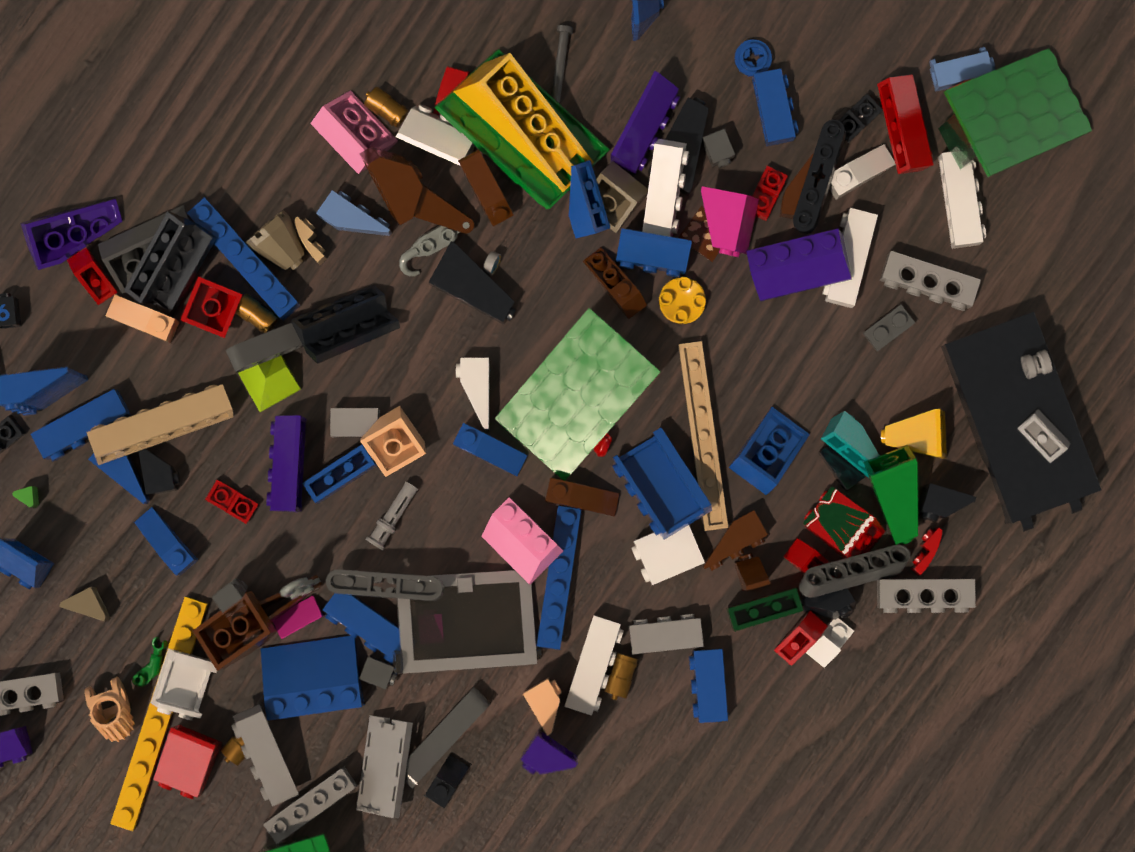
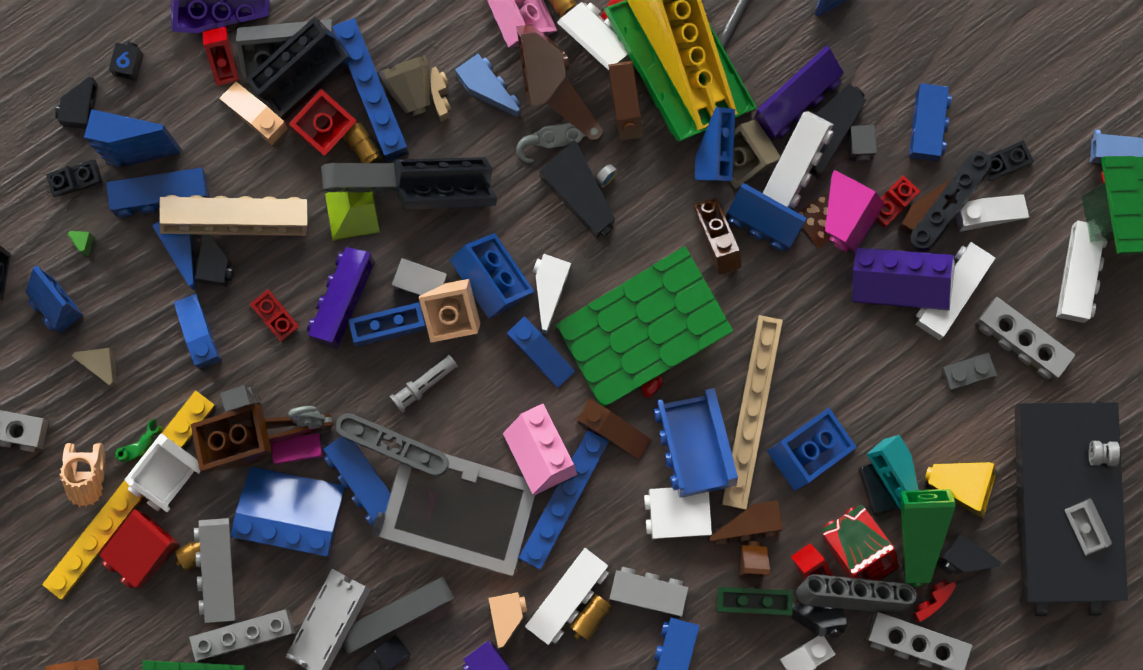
camera: 15 degrees right, 5 degrees down
(378, 673) = (355, 530): dark grey brick -> none
(419, 393) = (492, 275): none -> blue slope
(682, 300) = (777, 275): yellow dish -> none
(758, 49) = (932, 63): blue gear -> none
(801, 638) = (780, 643): red slope -> none
(905, 124) = (1051, 181): red brick -> none

